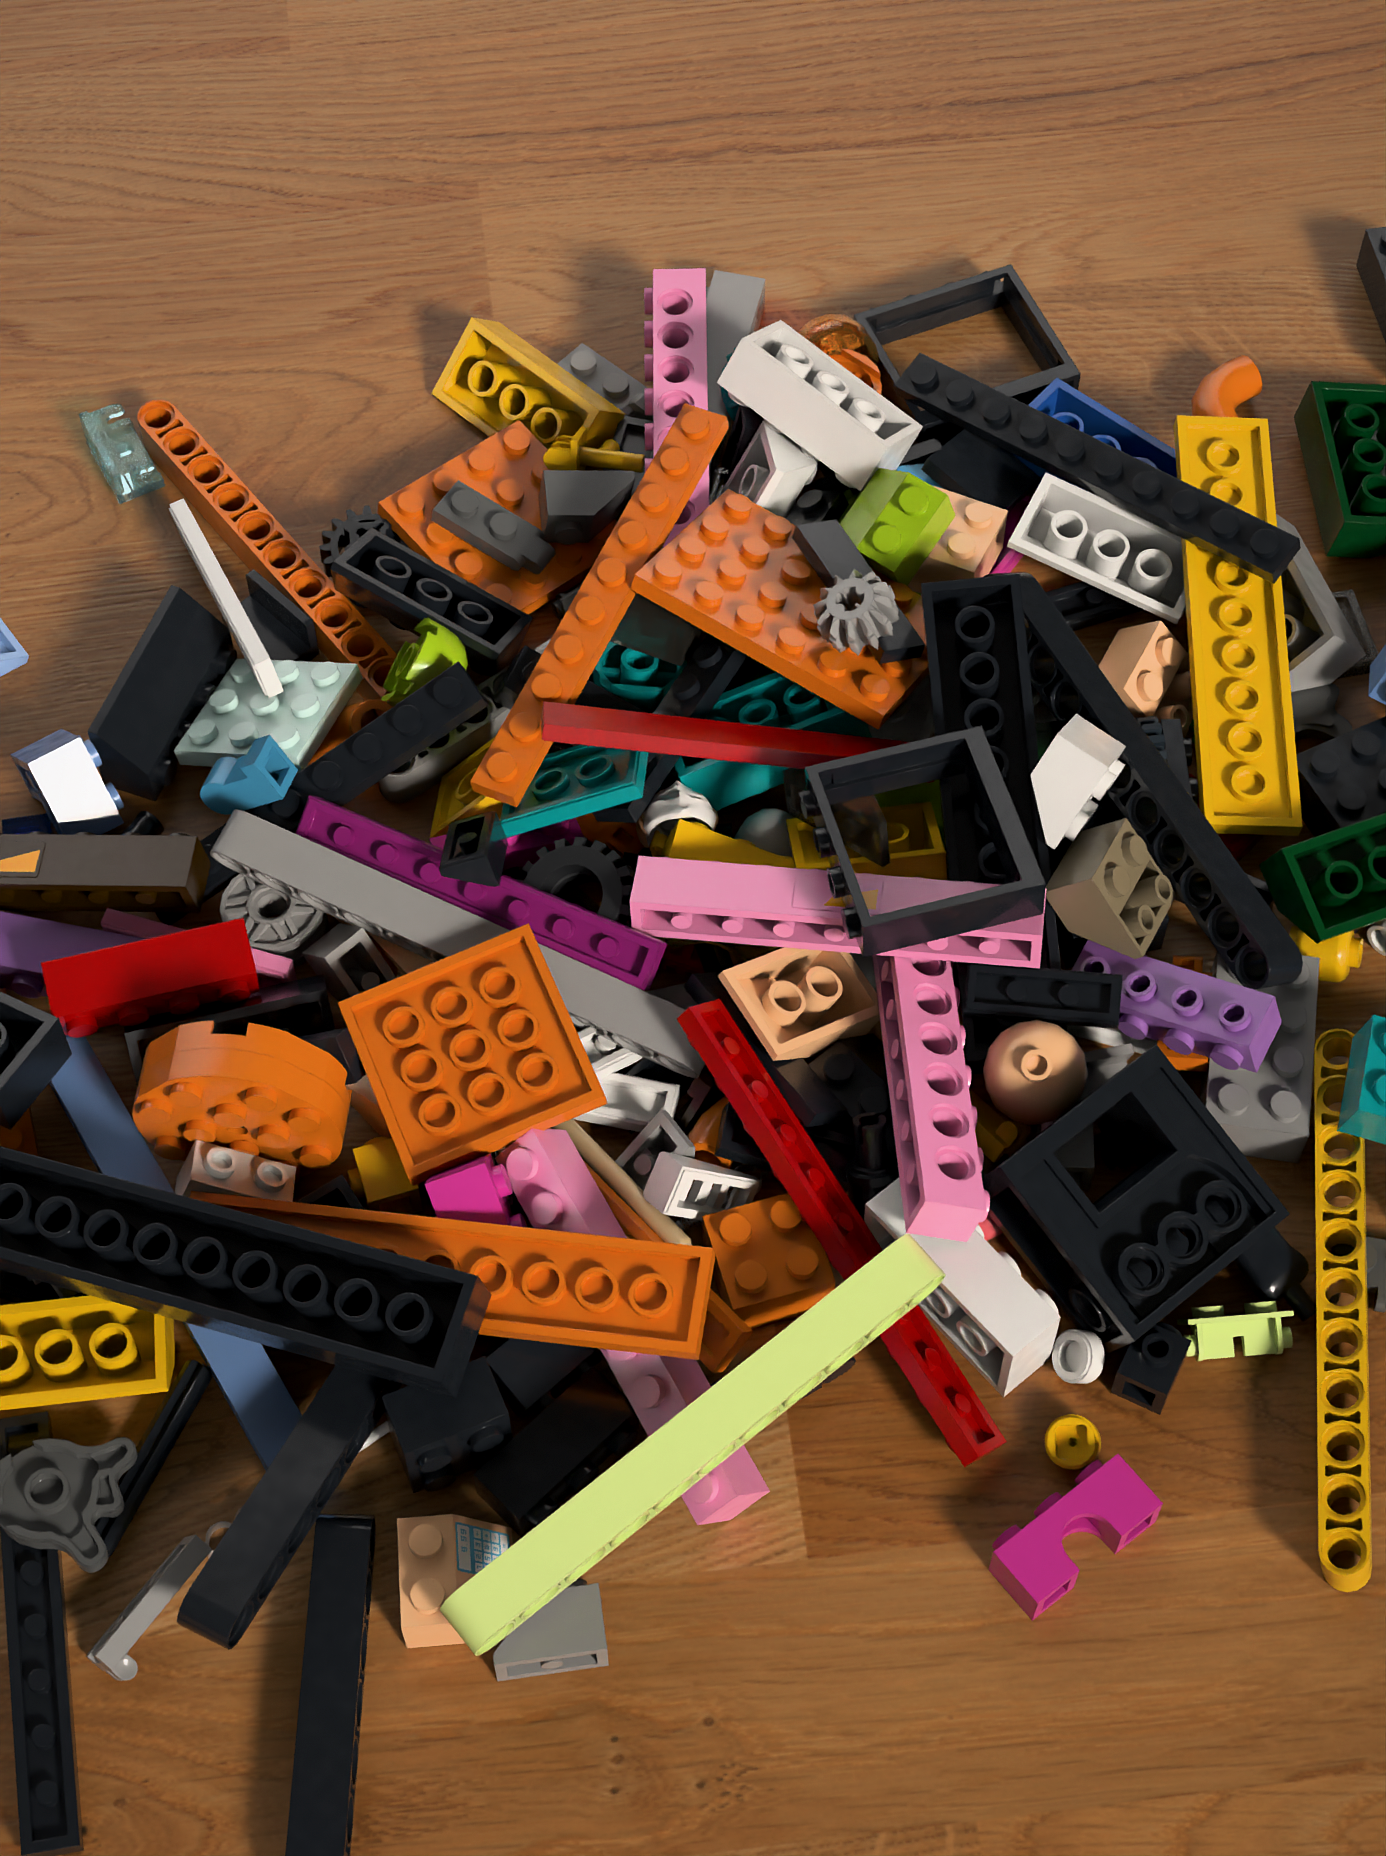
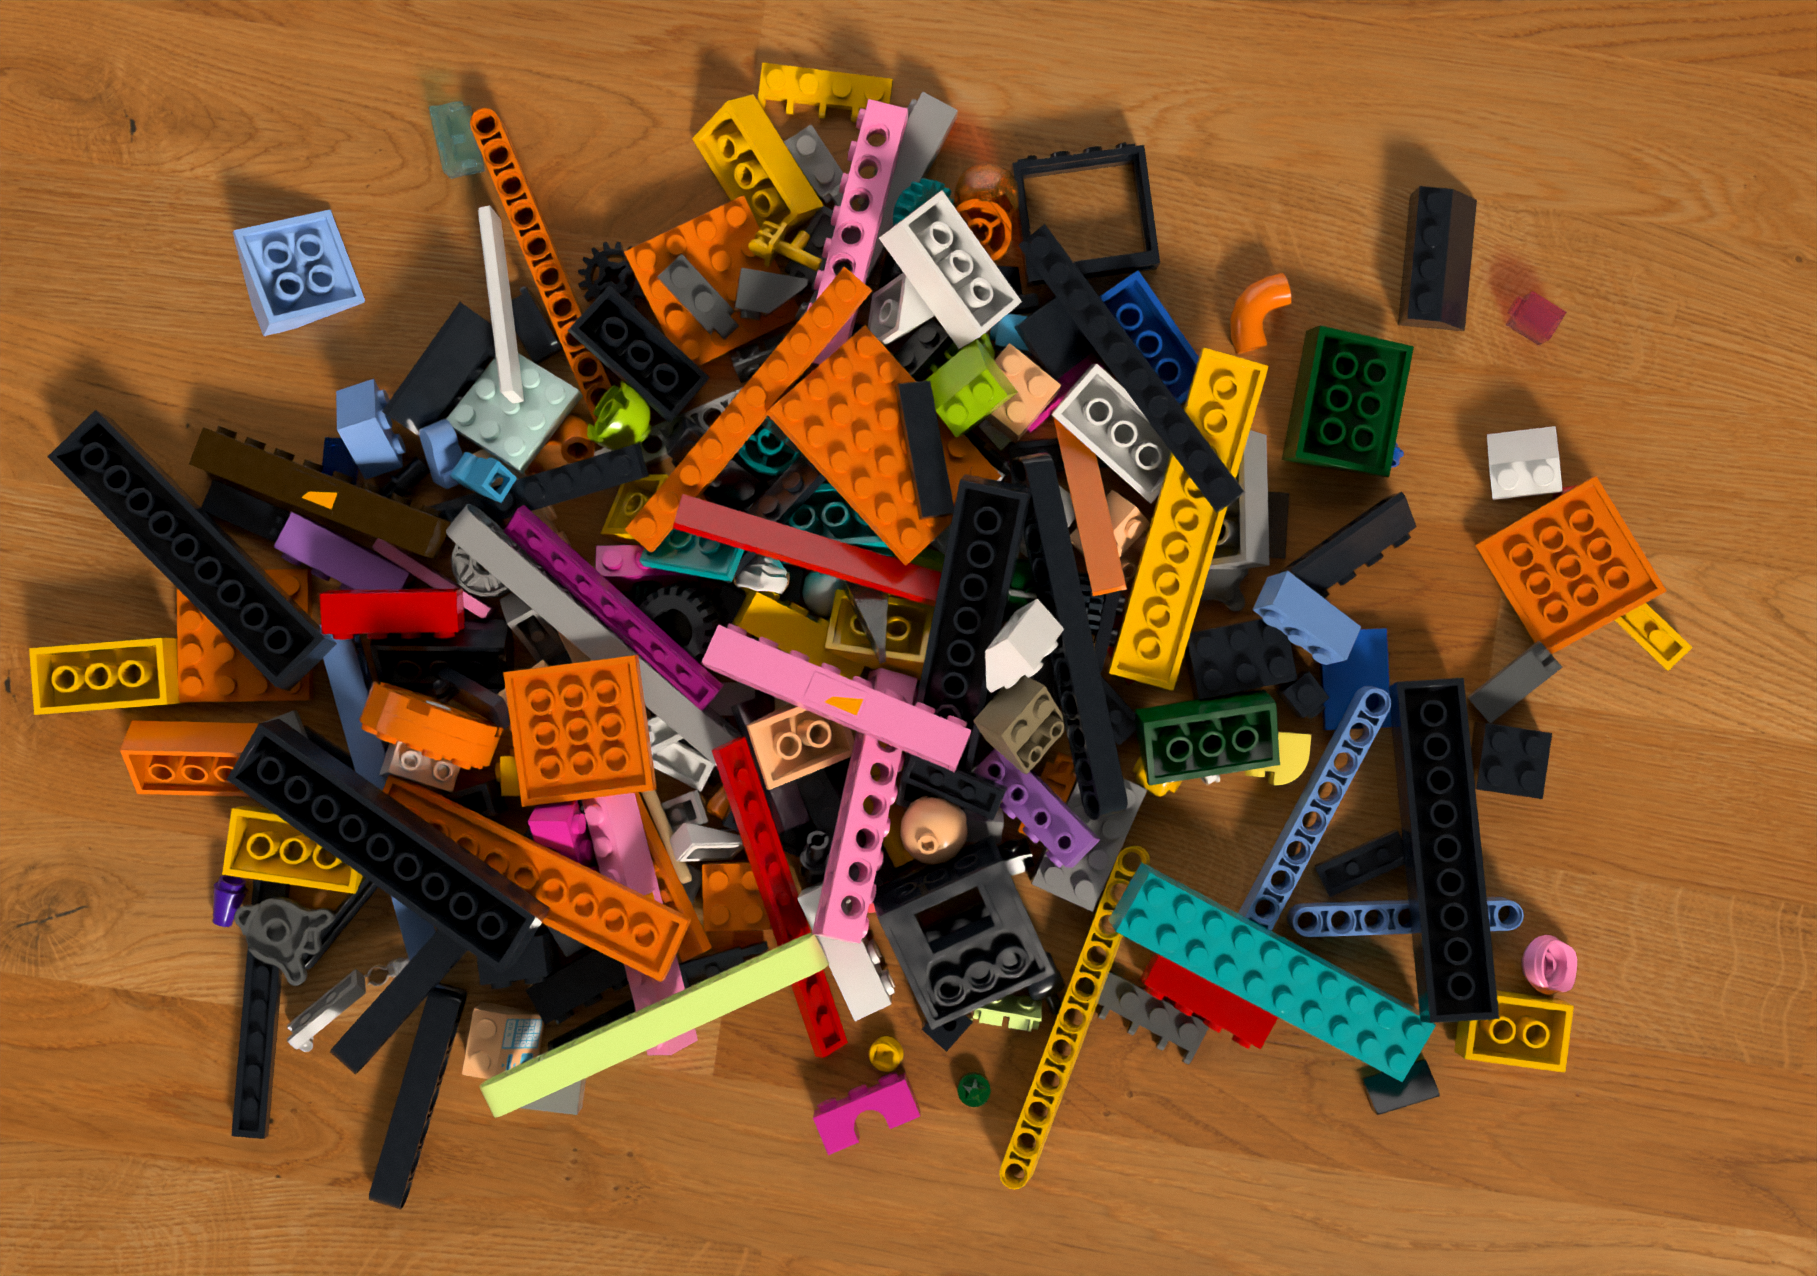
camera: 15 degrees right, 30 degrees up
(176, 784) = (441, 451): none -> medium blue leg
(475, 850) = (614, 585): black slope -> none
(576, 310) = (821, 88): none -> yellow hinge
(856, 612) = (912, 473): light grey gear -> none
(907, 766) = (839, 664): black window -> none
(1078, 1356) = (905, 1004): white tile -> none
(1114, 648) = (1091, 514): none -> orange tile
(1228, 1463) = (973, 1089): none -> dark green tile

